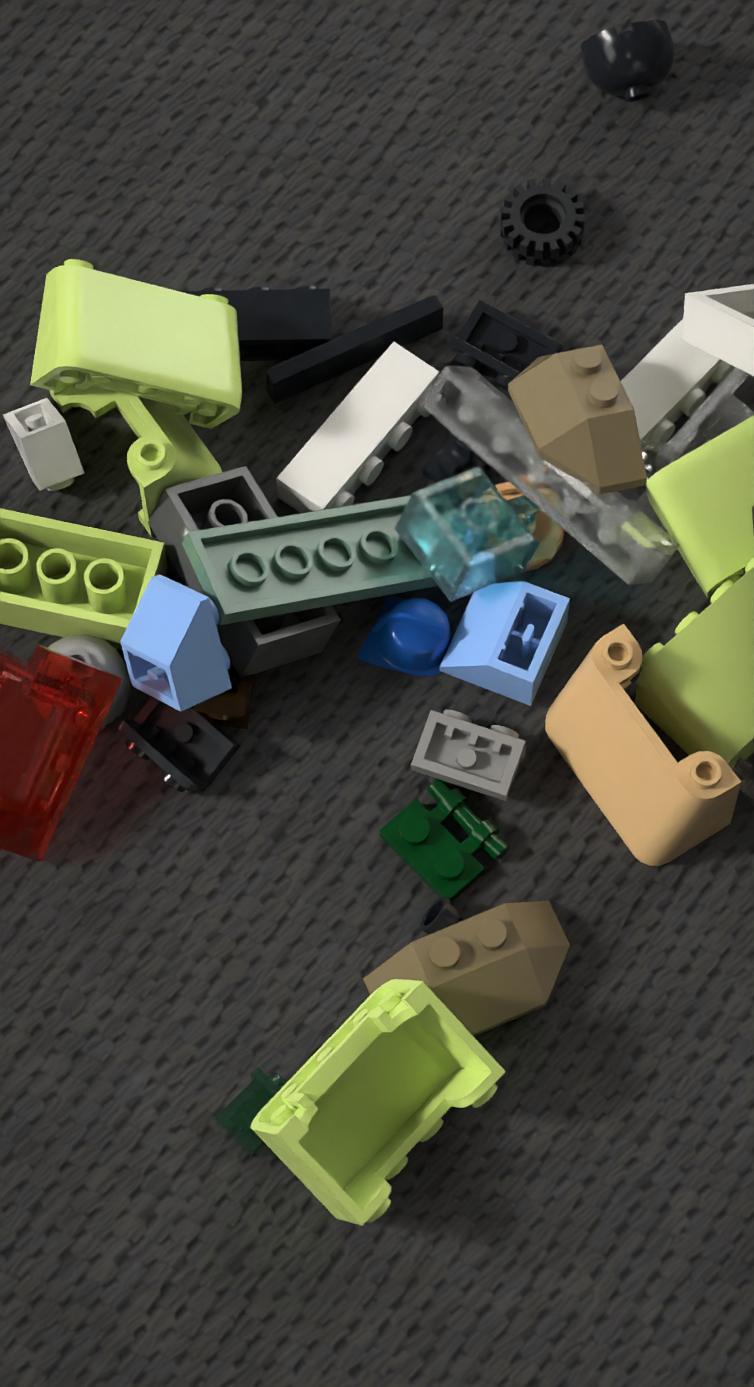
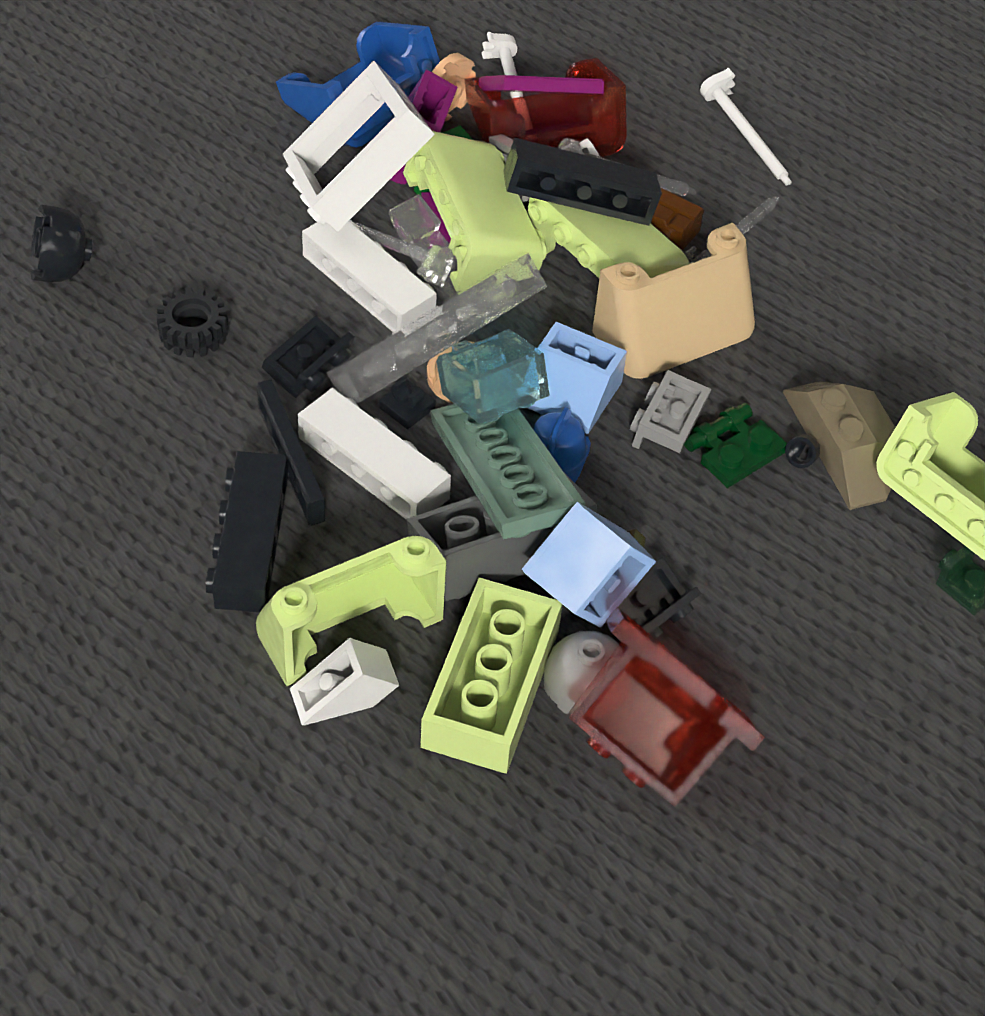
camera: 90 degrees left, 15 degrees down
(139, 342) = (297, 557): yellowish green windscreen -> none
(581, 418) = (397, 286): dark tan wedge -> none

